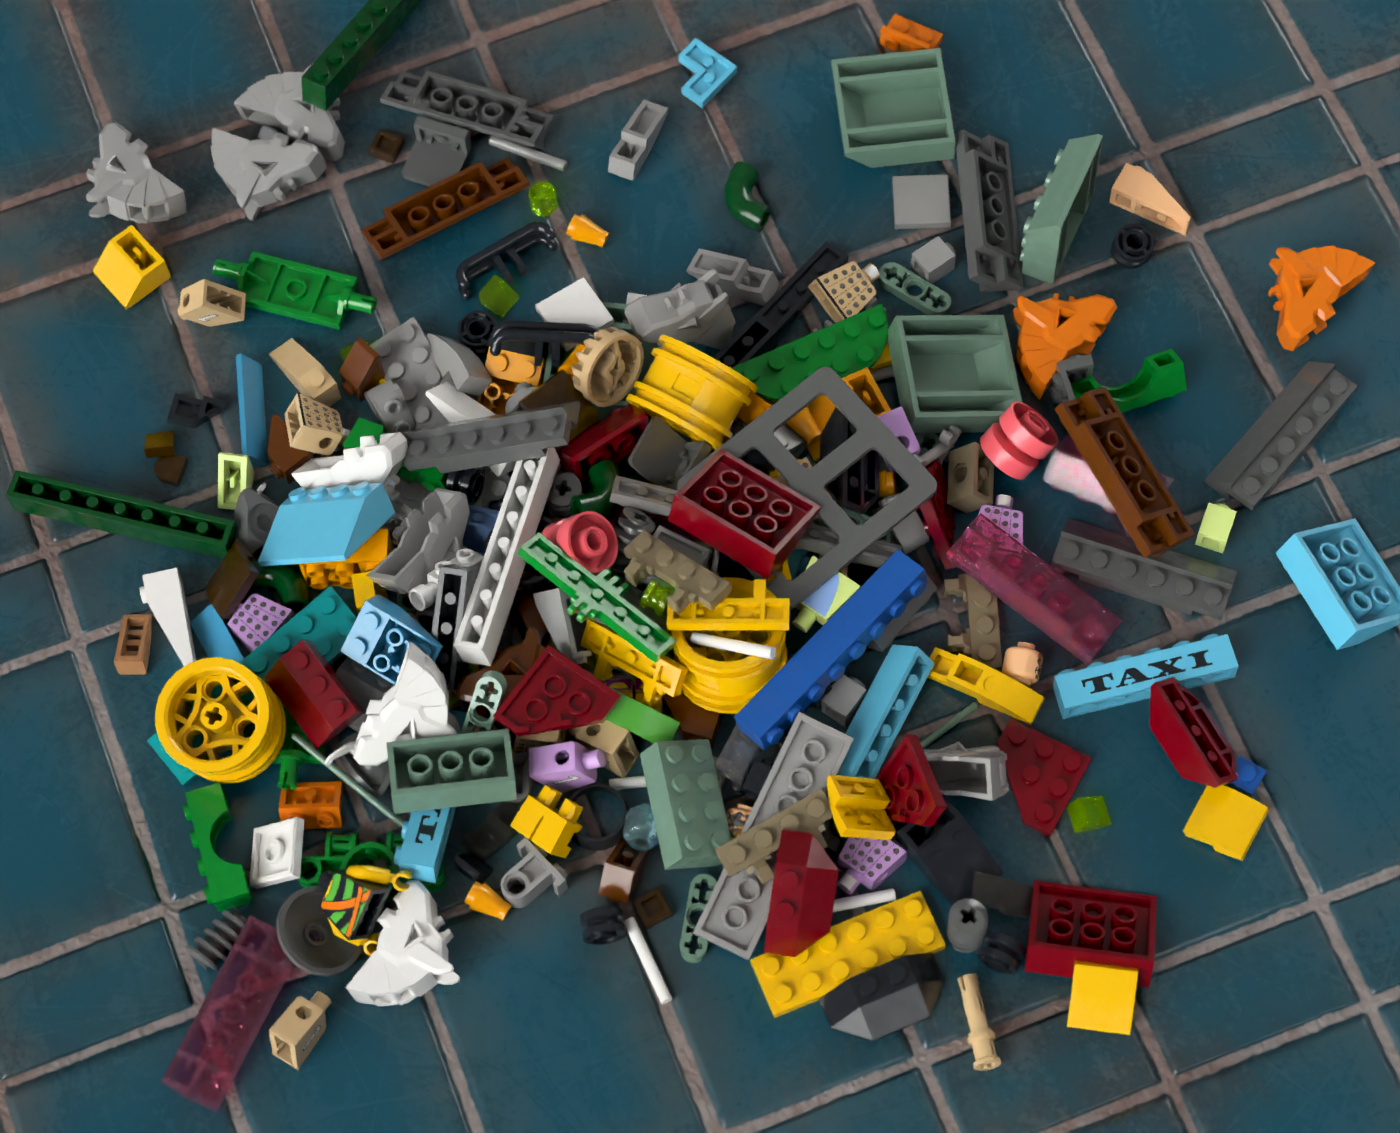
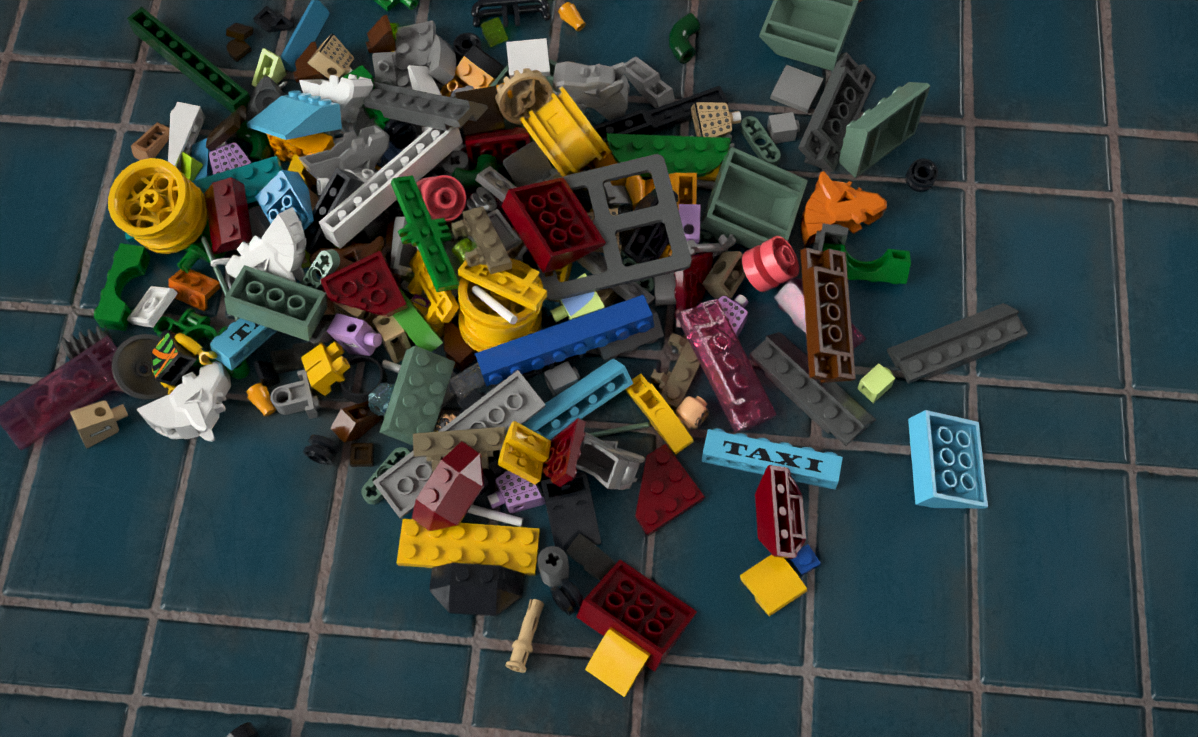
camera: 25 degrees right, 0 degrees up
(208, 648) = (190, 166): none -> lime slope
(306, 373) = (350, 29): tan slope -> none
(540, 332) = (495, 57): black piece -> none
(647, 960) = (339, 486): white bar -> none
(1088, 814) = (682, 533): clear neon green slope -> none
(1145, 196) = (947, 146): light nougat slope -> none
(1322, 277) = (1030, 253): orange animal -> none

